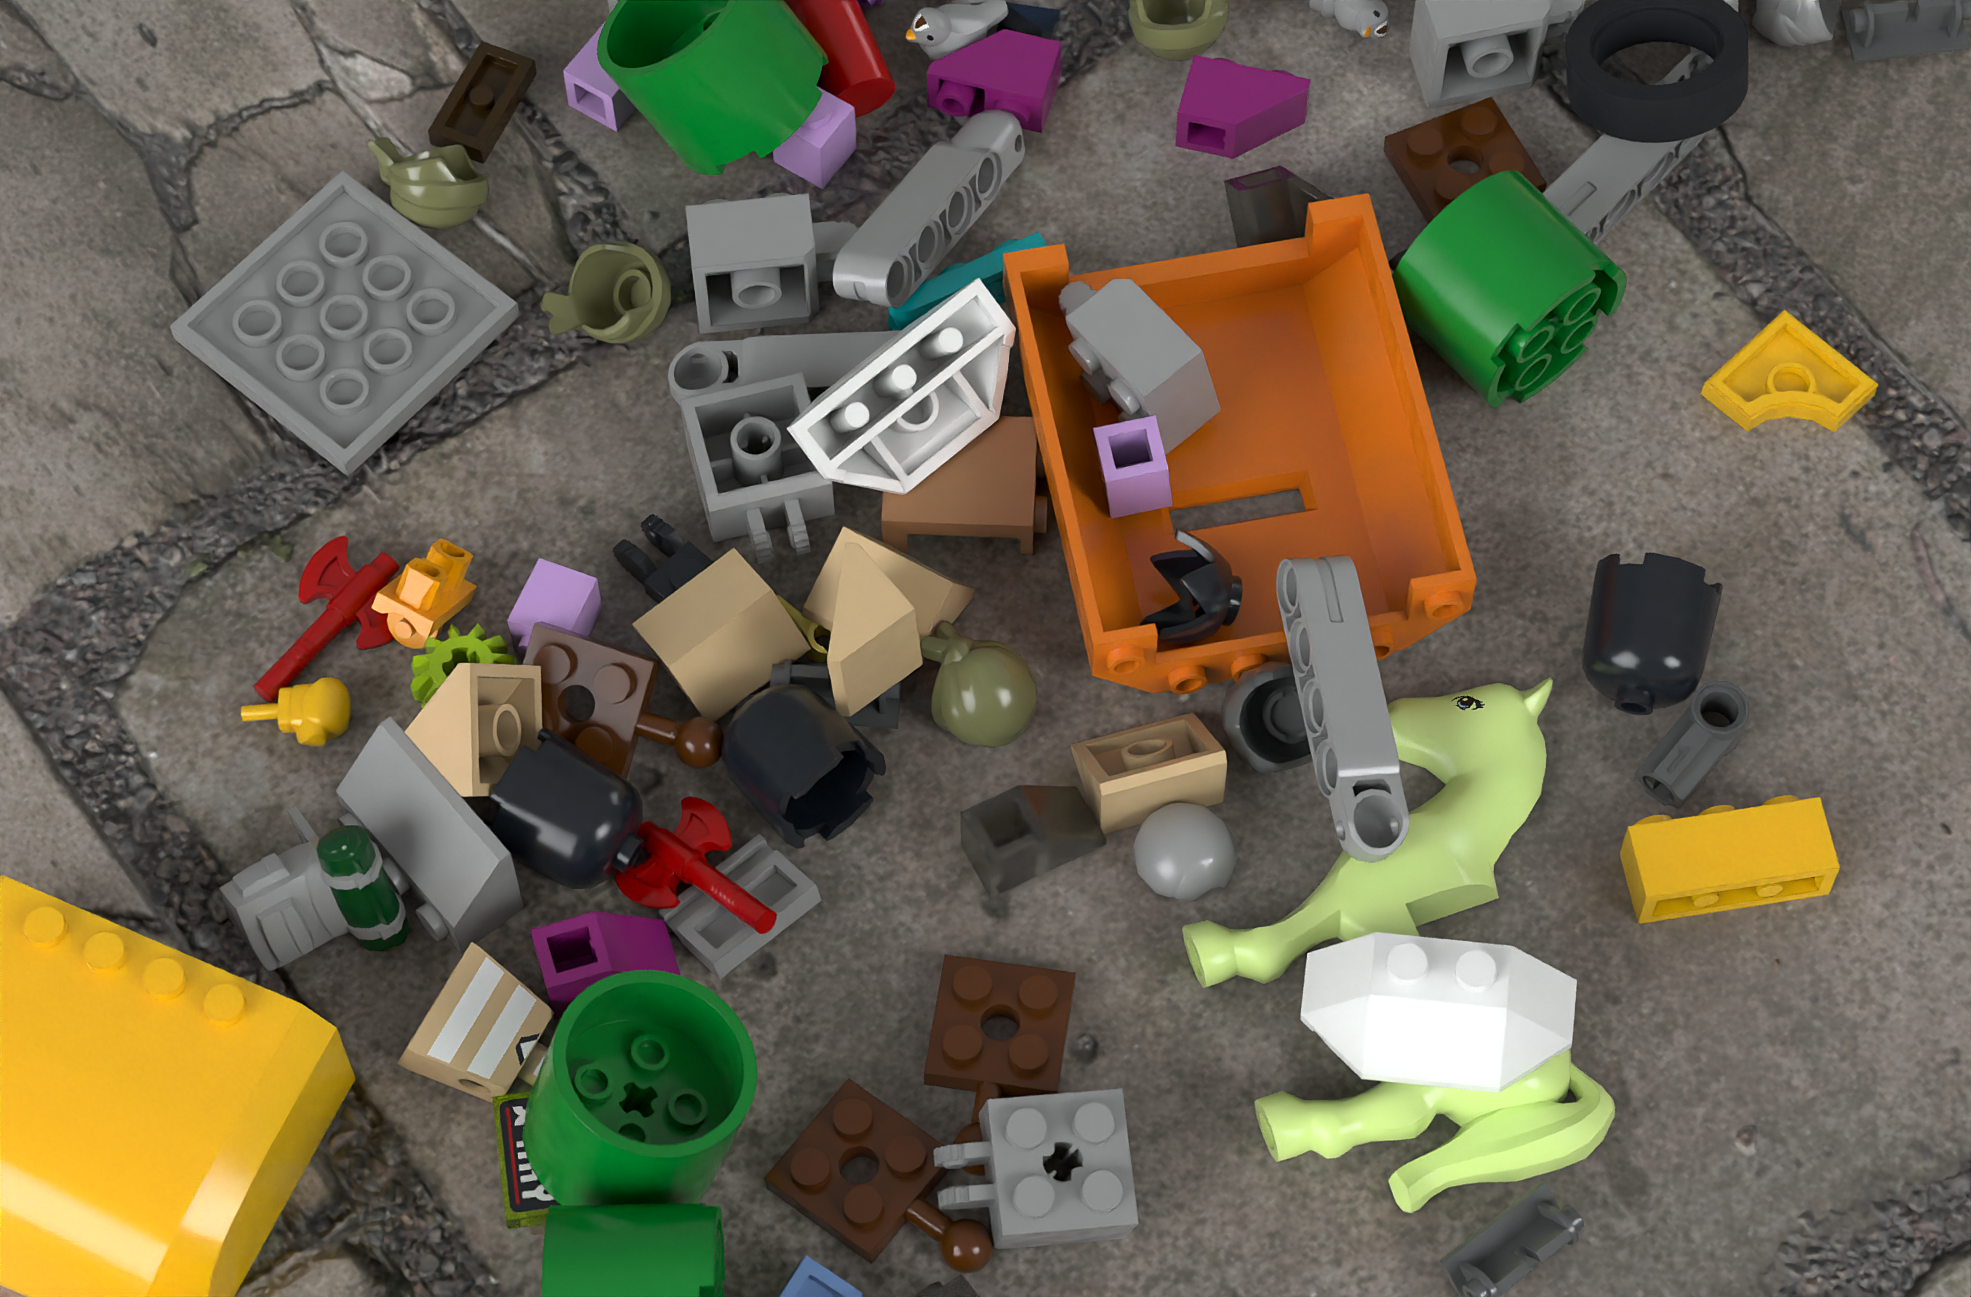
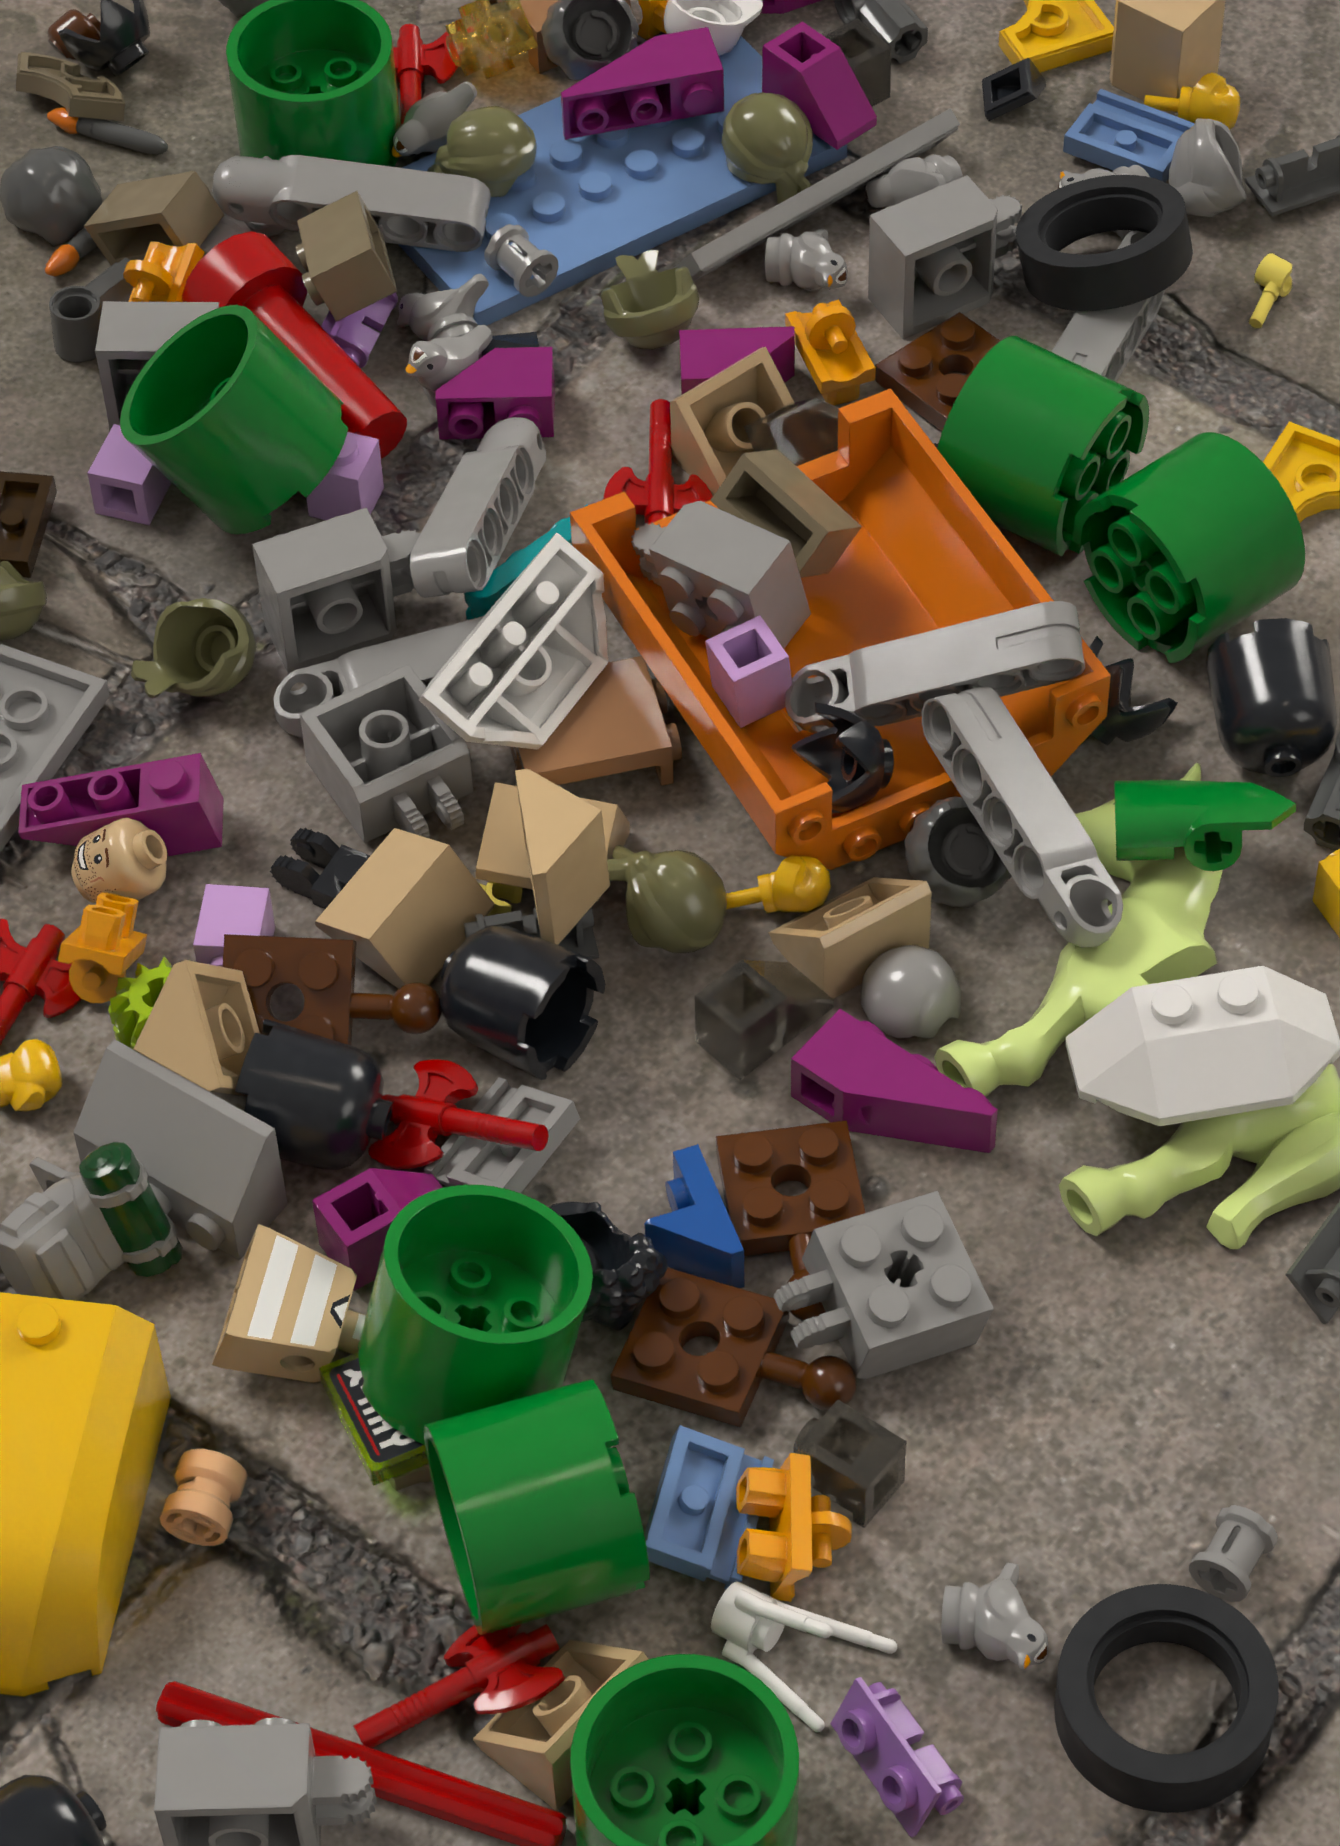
camera: 15 degrees left, 10 degrees down
(346, 1200) = (201, 1504): none -> light nougat wheel
(468, 508) = (120, 860): none -> tan head
(494, 450) = (166, 795): none -> magenta slope
(791, 1064) = (622, 1265): none -> black hair
(893, 1055) = (698, 1231): none -> blue slope
(1106, 707) = (795, 887): none -> yellow piece
(1112, 945) = (886, 1091): none -> magenta slope
(1121, 231) = (658, 494): none -> red piece
(1192, 168) = (711, 417): none -> tan slope
(1221, 303) = (784, 501): none -> dark tan piece
(1316, 521) = (897, 677): none -> light grey piece
(1343, 112) = (832, 351): none -> light orange hips
(1496, 570) = (1122, 720): none -> black piece
(1515, 743) = (1192, 815): none -> green panel
(1618, 442) = (1190, 545): none -> green brick
(1832, 137) = (1275, 276): none -> light yellow hand

